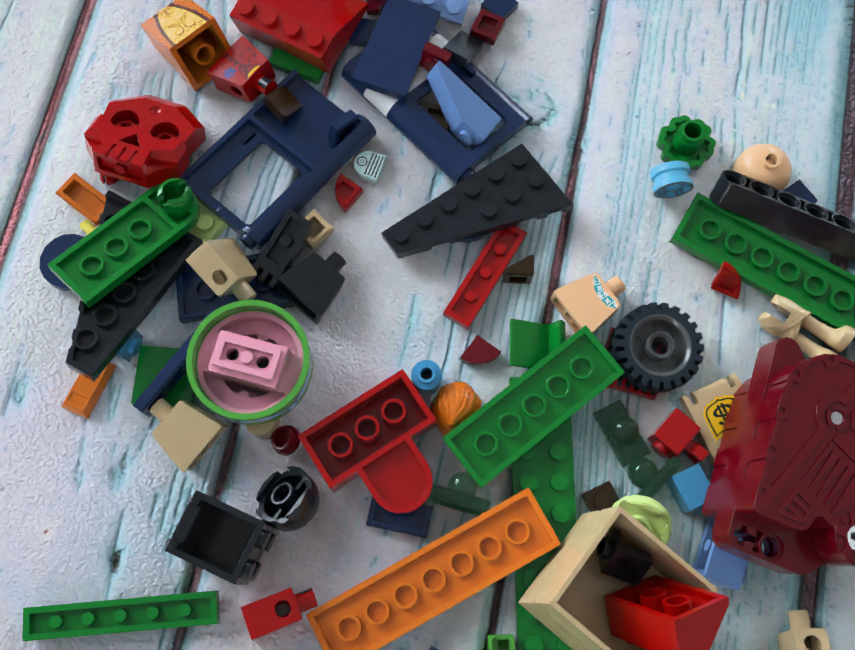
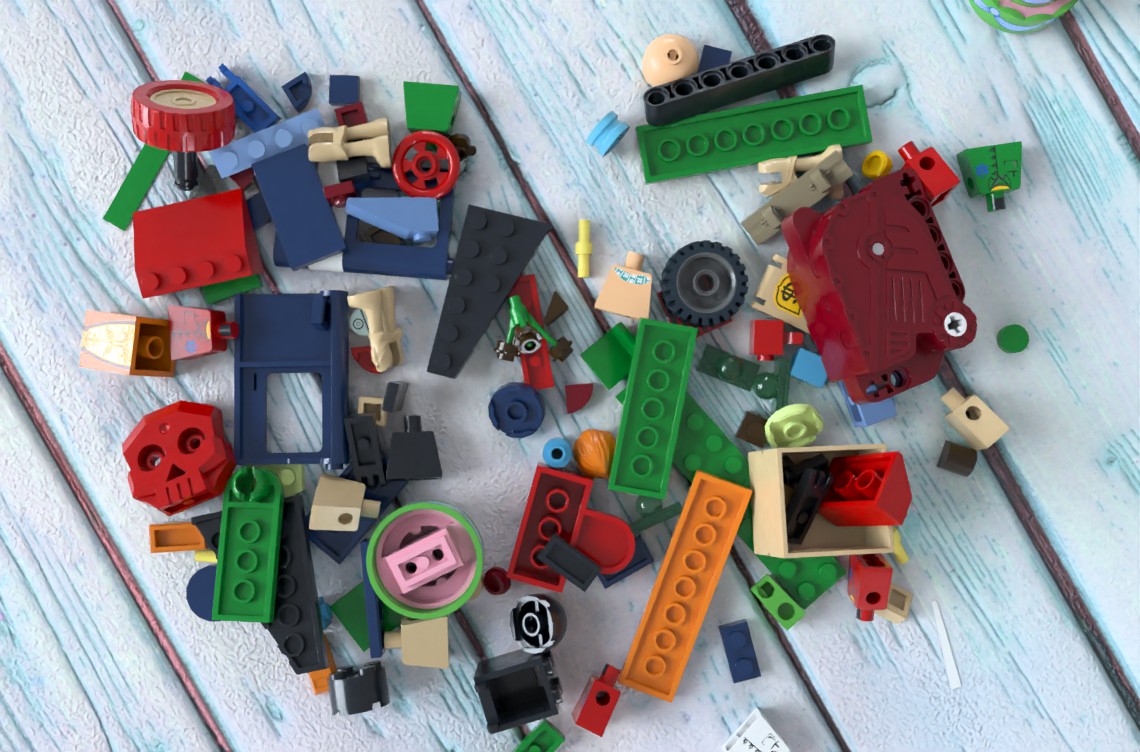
camera: 40 degrees left, 15 degrees up
(99, 424) = (359, 689): none -> black brick
(282, 104) = (254, 332): dark brown slope -> none
(341, 228) = (394, 396): none -> black tile
(359, 467) = (569, 562): none -> black tile
(369, 188) = (383, 333): none -> tan piece
(423, 320) = (517, 409): none -> dark blue tile
(468, 30) = (332, 142): none -> tan piece
(484, 262) = (528, 337): none -> dark brown plant
(523, 72) = (446, 151): none -> red plate
(550, 63) = (431, 108): none -> green torso
(553, 98) = (463, 145): none -> dark brown plate
(580, 248) = (583, 248): none -> light yellow bar
(603, 583) = (806, 503): none -> black hinge
(686, 141) = (591, 102): green plant -> none
(727, 281) = (714, 181): red tile -> none
(746, 342) = (801, 193): none -> dark tan hinge

